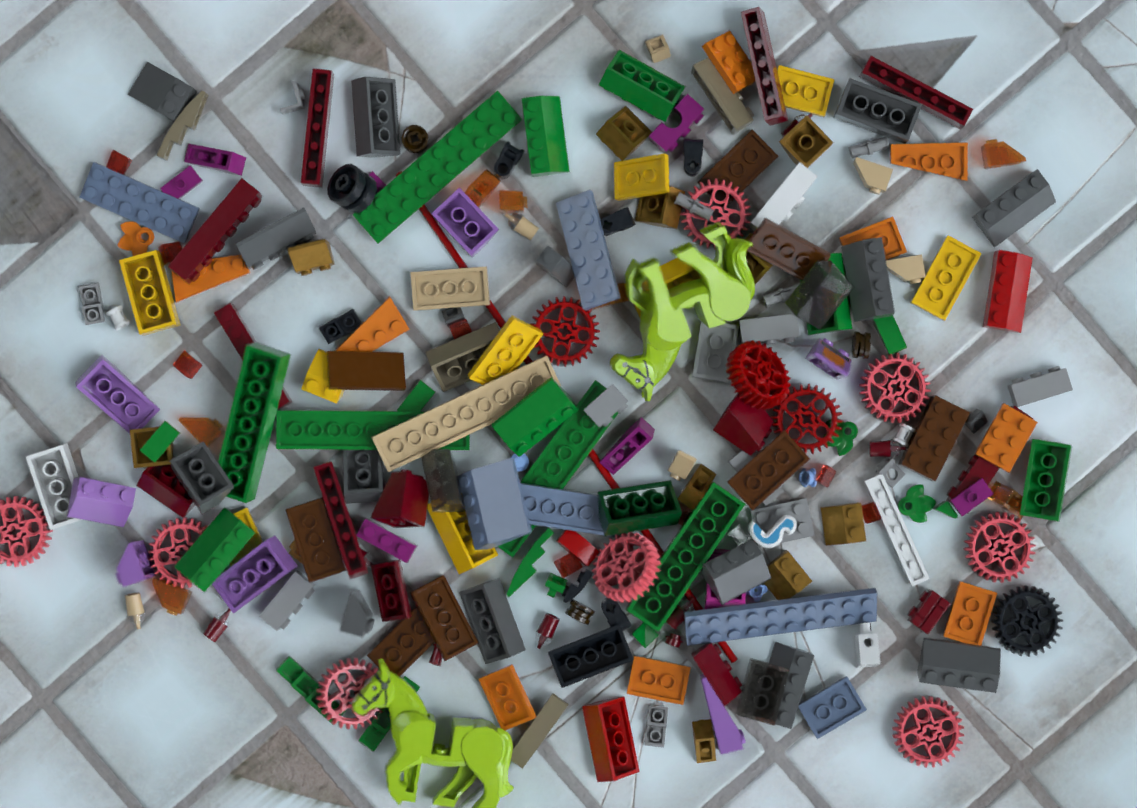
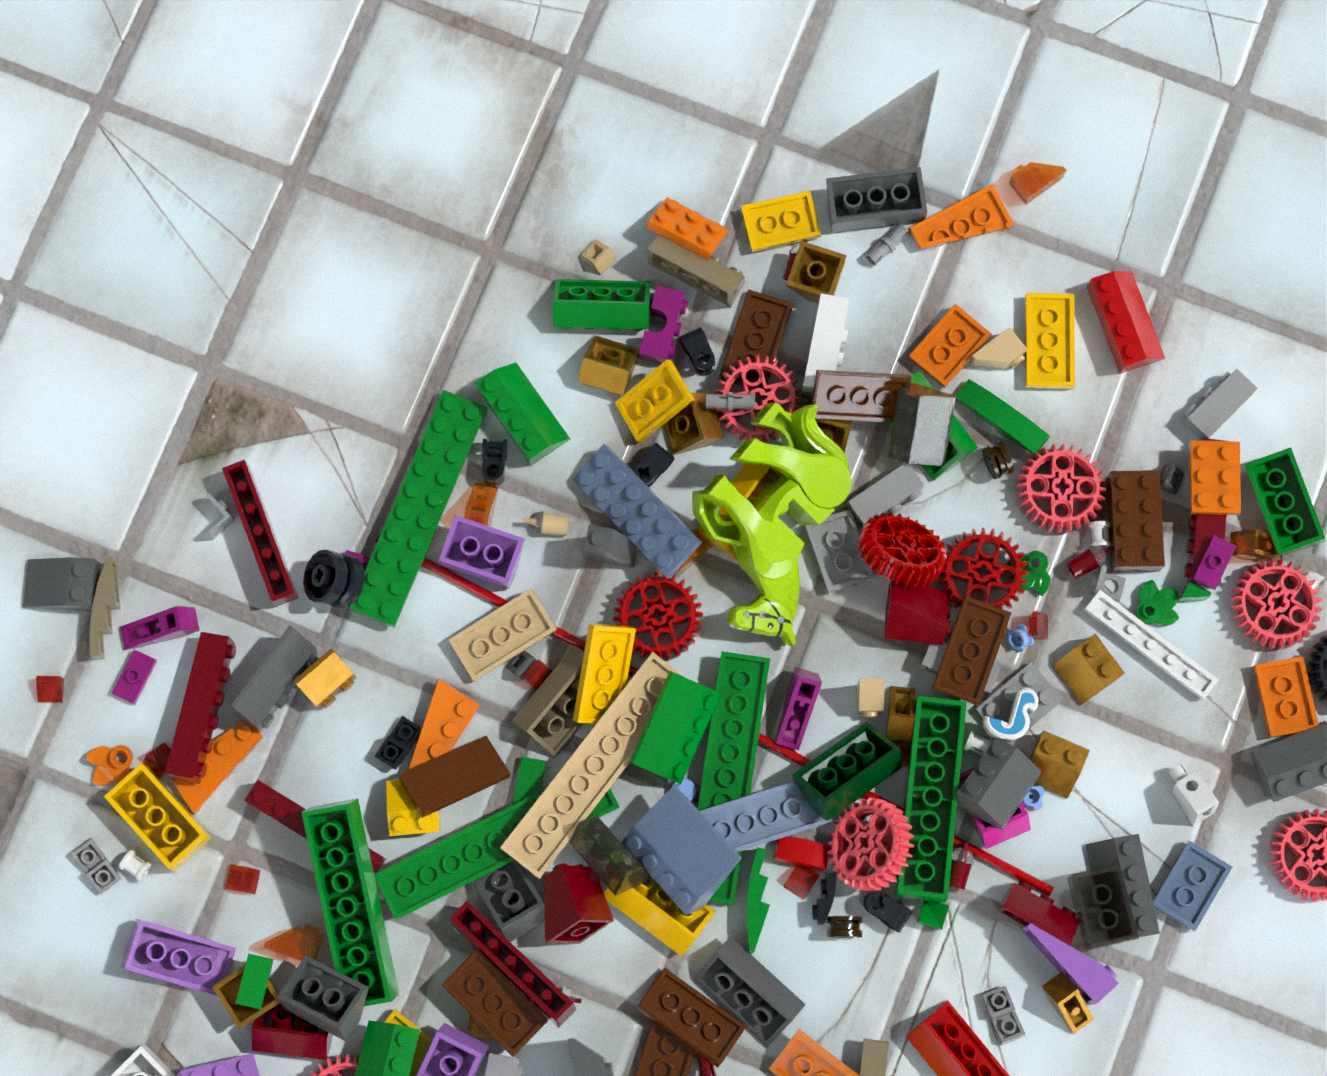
camera: 30 degrees left, 10 degrees down
(139, 202) = (95, 721): sand blue plate -> none
(375, 117) = (320, 488): dark grey slope -> none
(386, 540) = (578, 961): magenta arch -> none
(391, 591) = (613, 1016): dark red slope -> none
(415, 139) = (377, 489): dark brown wheel -> none
(512, 202) = (523, 502): clear orange slope -> none
(546, 630) = (817, 969): dark red piece -> none
(556, 584) = (799, 909): green tile -> none
(590, 656) = (884, 970): black slope -> none
(606, 406) = (750, 671): light grey brick -> none
(658, 680) = (977, 959): orange plate -> none
(673, 640) = (969, 904): dark red plate -> none
(764, 66) = (726, 213): brick -> none
(778, 296) = (877, 454): light grey pin -> none
(780, 616) = (1075, 810): sand blue plate -> none
(829, 359) = (971, 494): medium lavender slope -> none
(869, 276) = (959, 371): dark grey slope -> none
(870, 512) = (1112, 639): clear red slope -> none
(873, 175) = (908, 270): tan slope -> none
(905, 86) = (933, 158): dark red brick -> none
(928, 611) = (1237, 717): dark red brick -> none
(1015, 208) = (1083, 227): dark grey slope -> none

